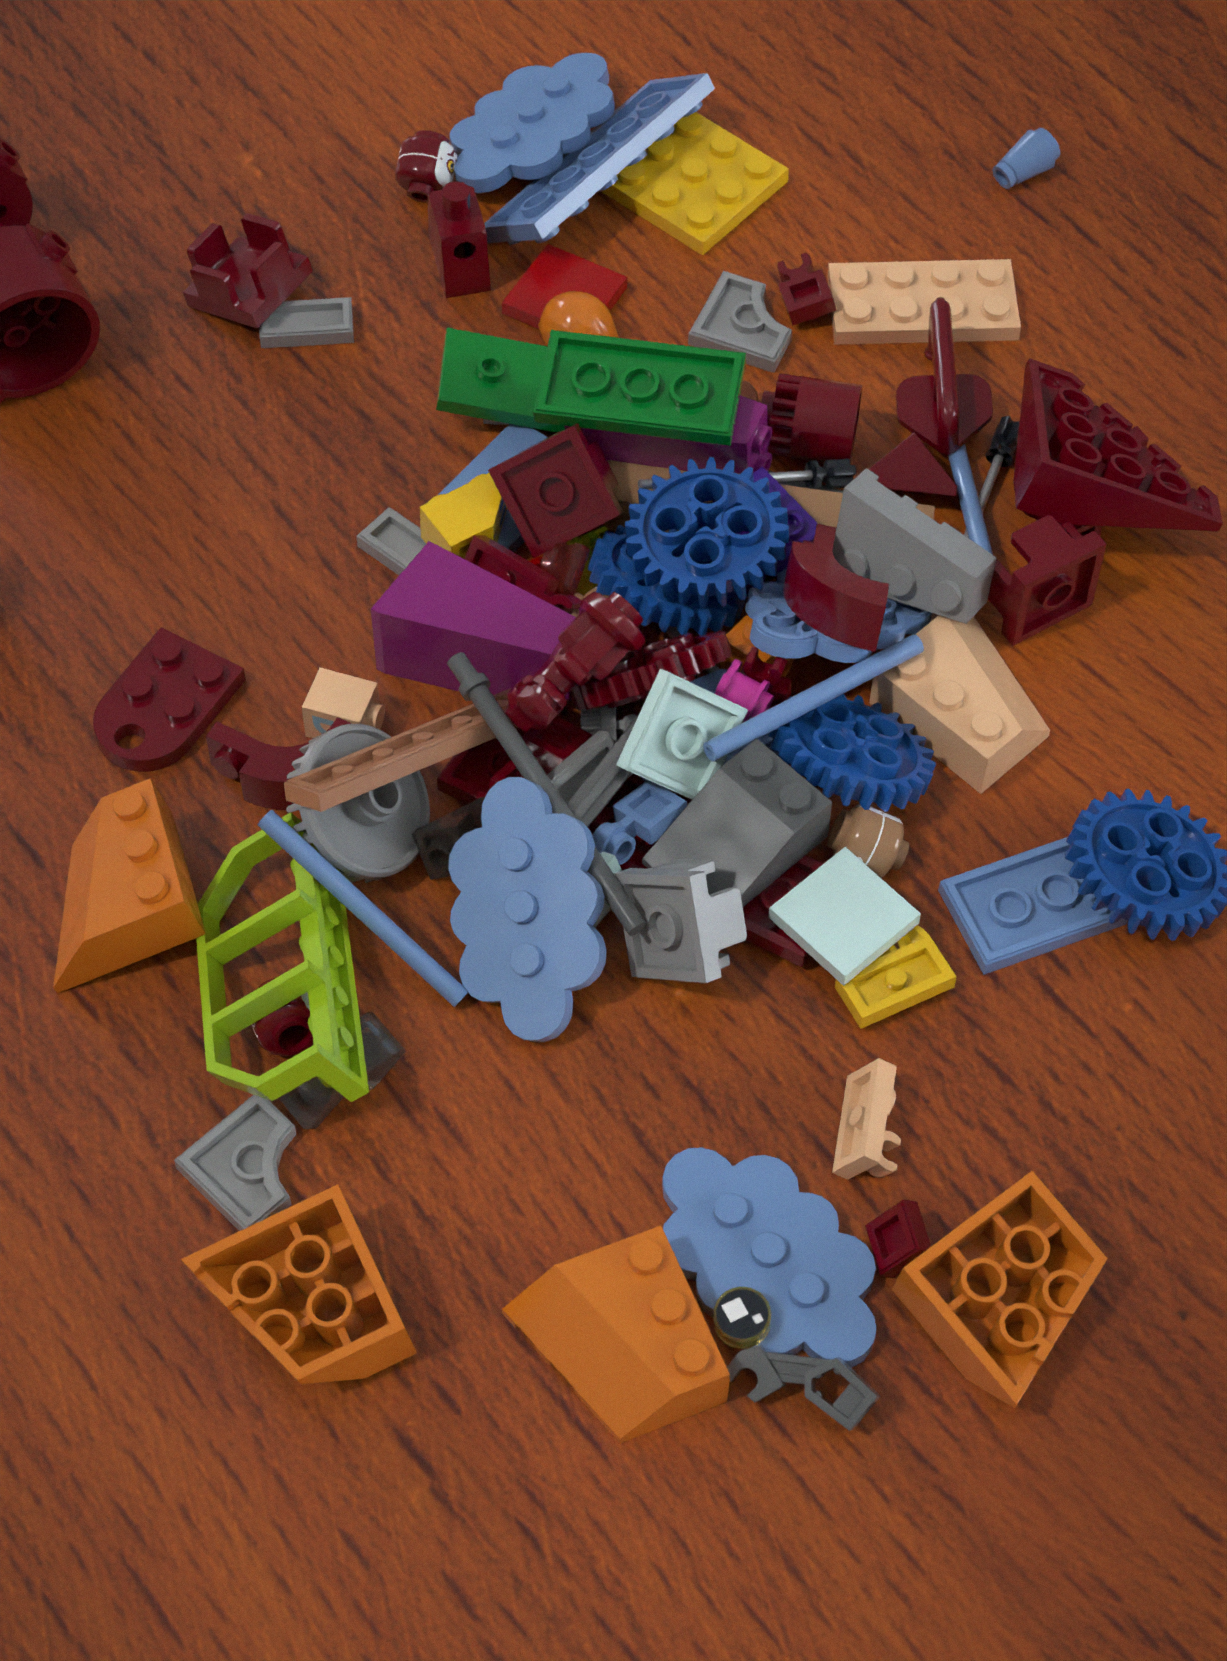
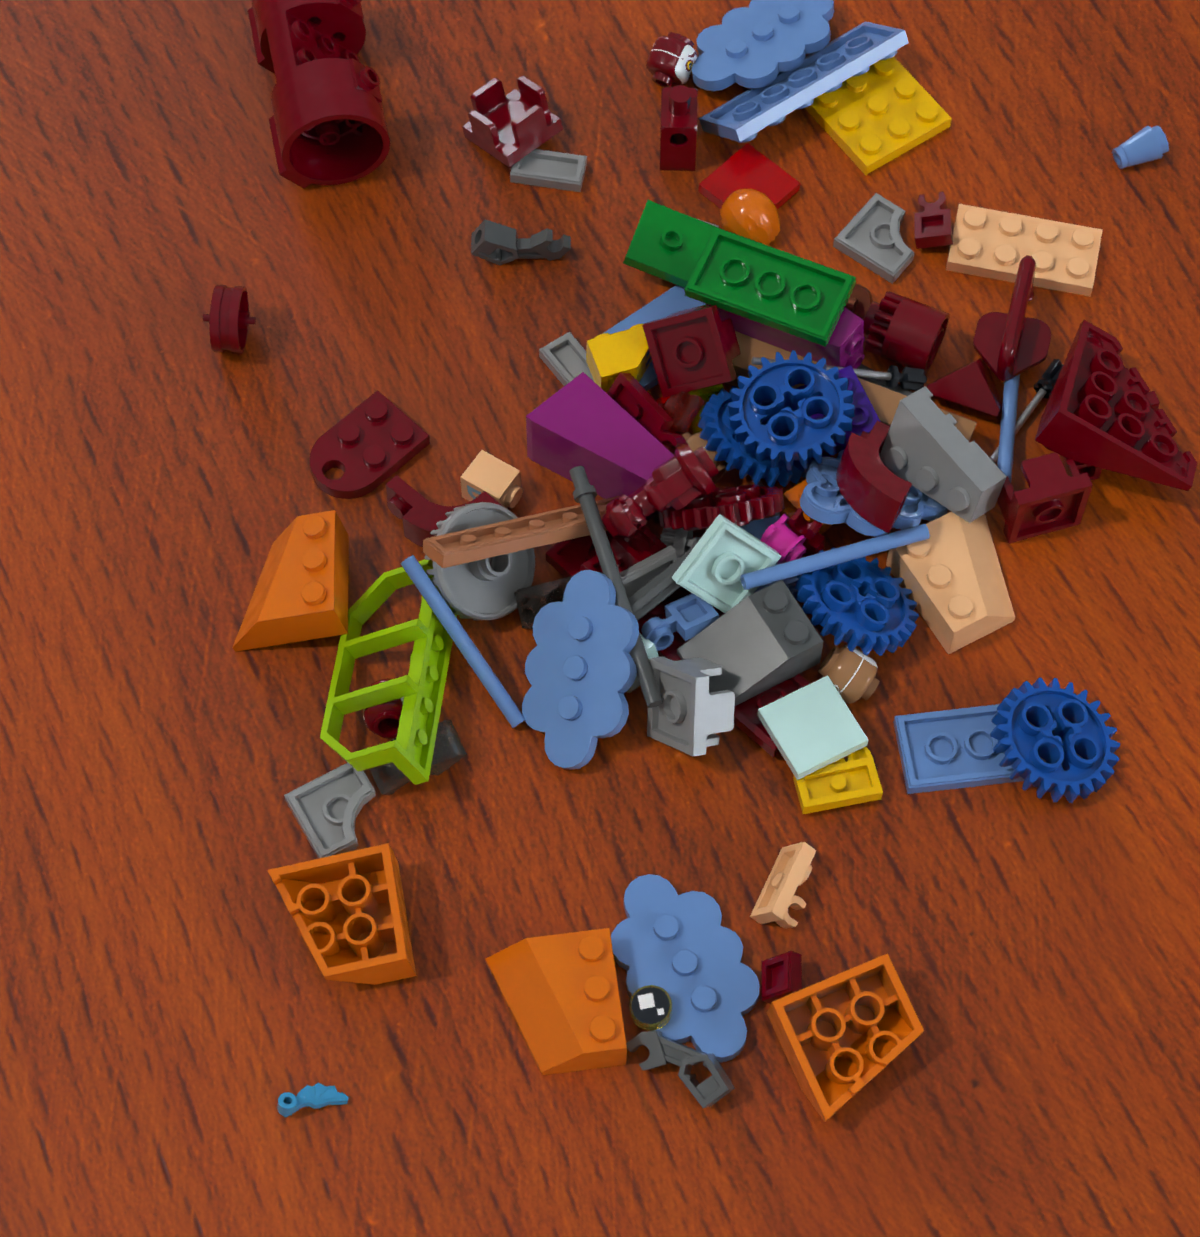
camera: 15 degrees right, 5 degrees up
(272, 421) = (502, 245): none -> dark grey piece
(320, 1548) = (312, 1096): none -> dark azure piece

